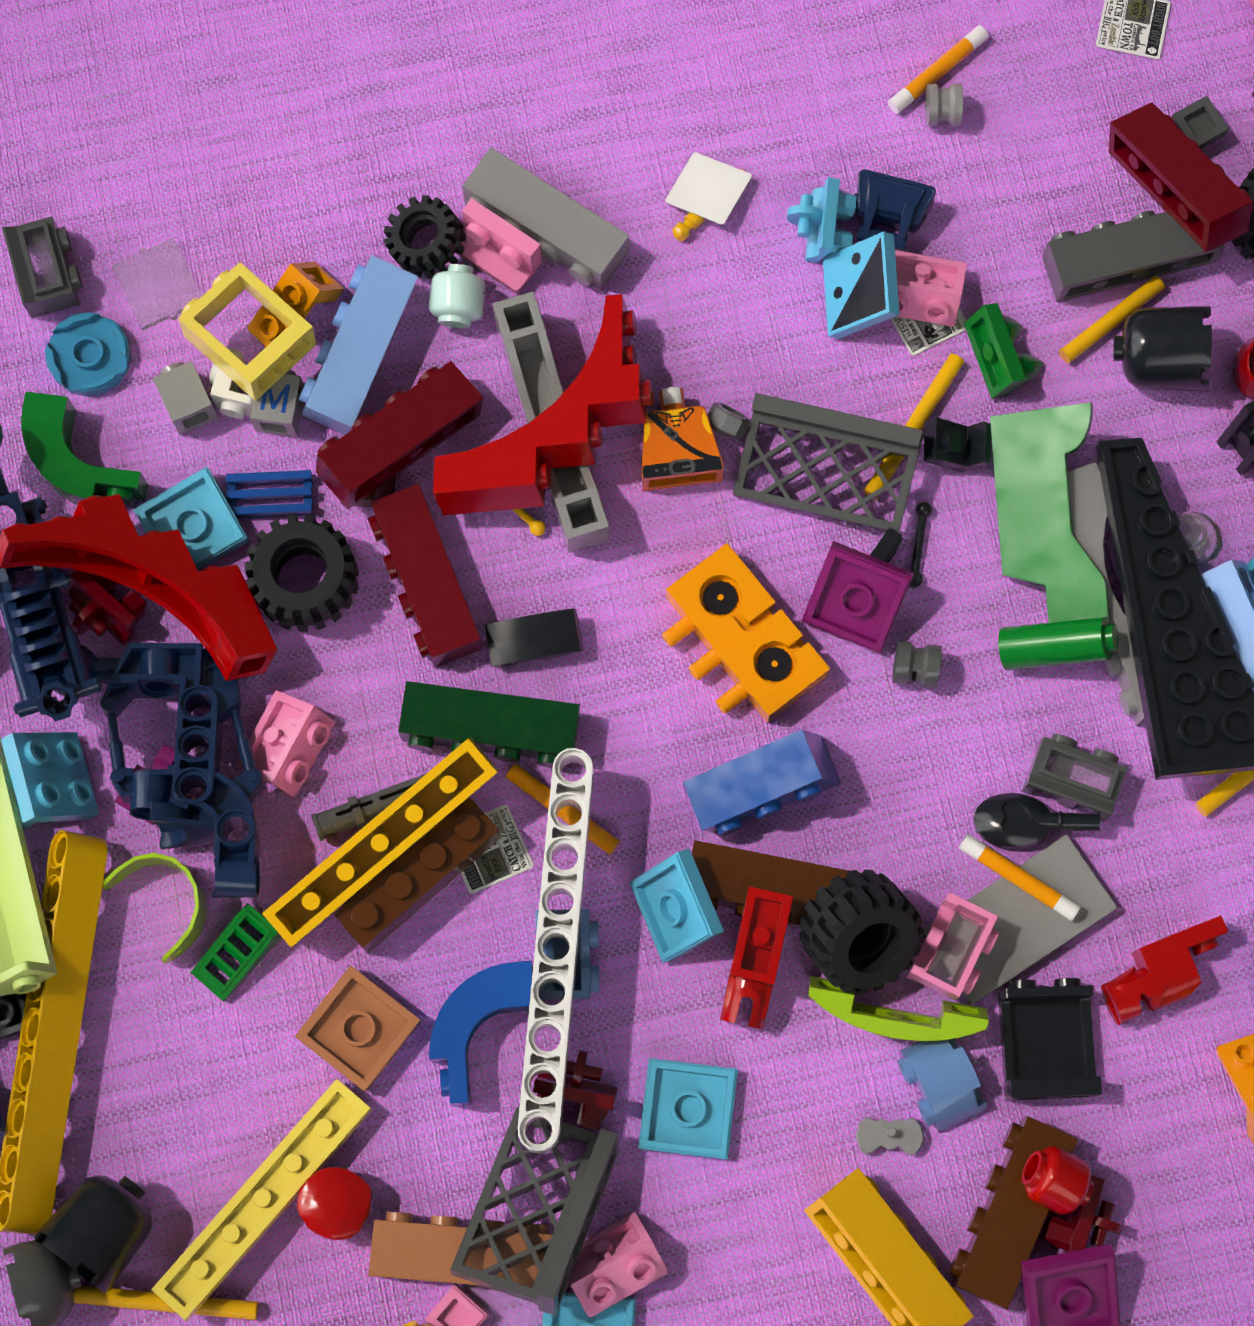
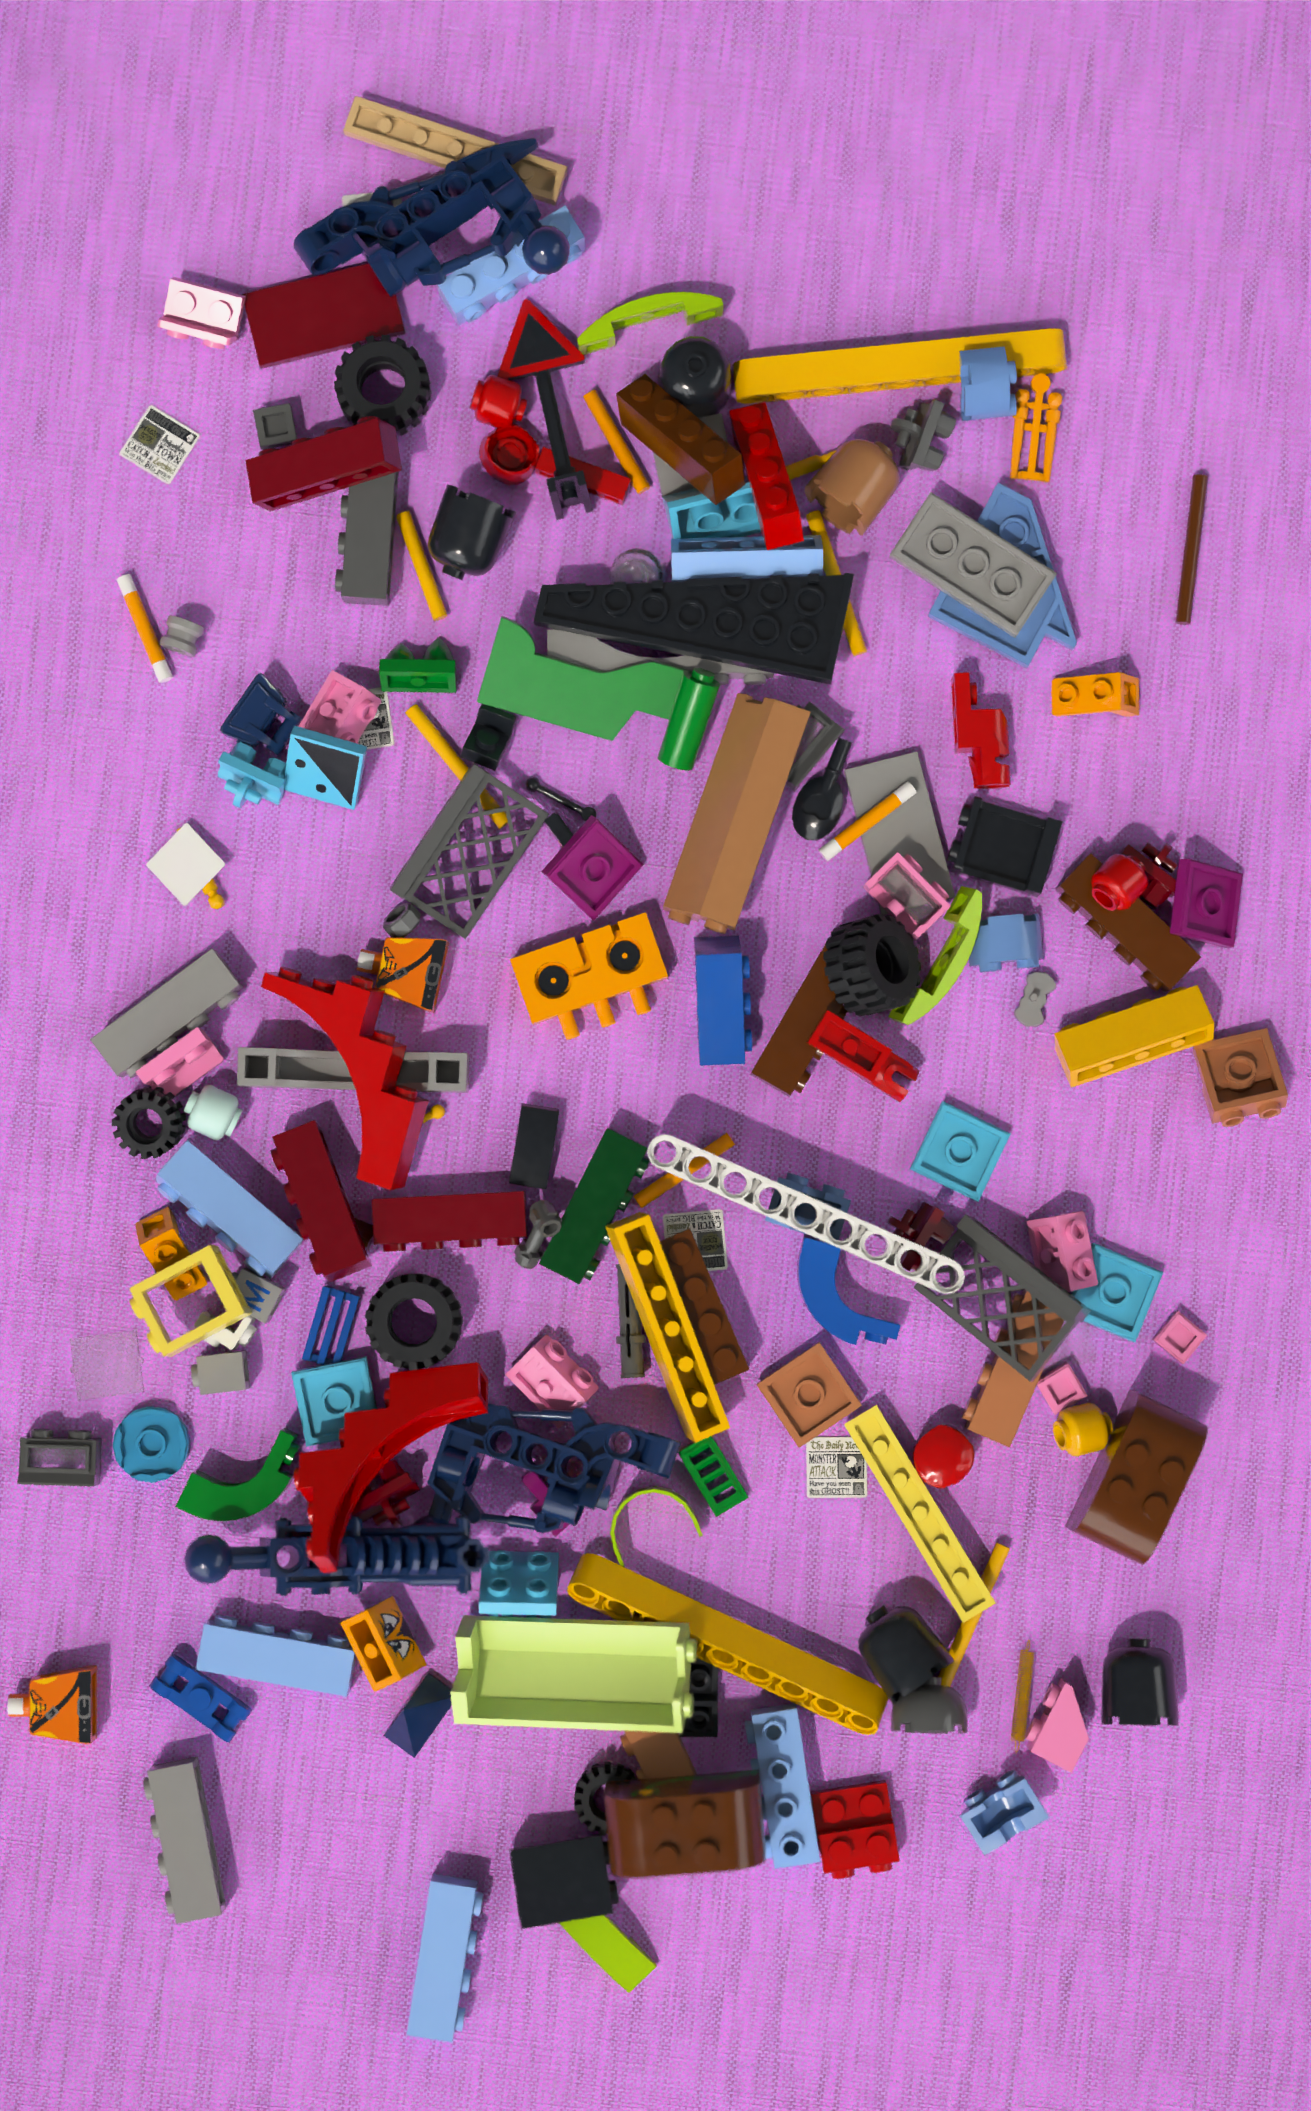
camera: 75 degrees left, 10 degrees up
(284, 1088) = (835, 1468): none -> sticker
(452, 674) = (545, 1224): none -> dark grey bar
(676, 906) = (799, 1105): medium azure tile -> none
(917, 664) = (664, 839): dark grey wheel -> none
(975, 724) = (735, 812): none -> medium nougat panel

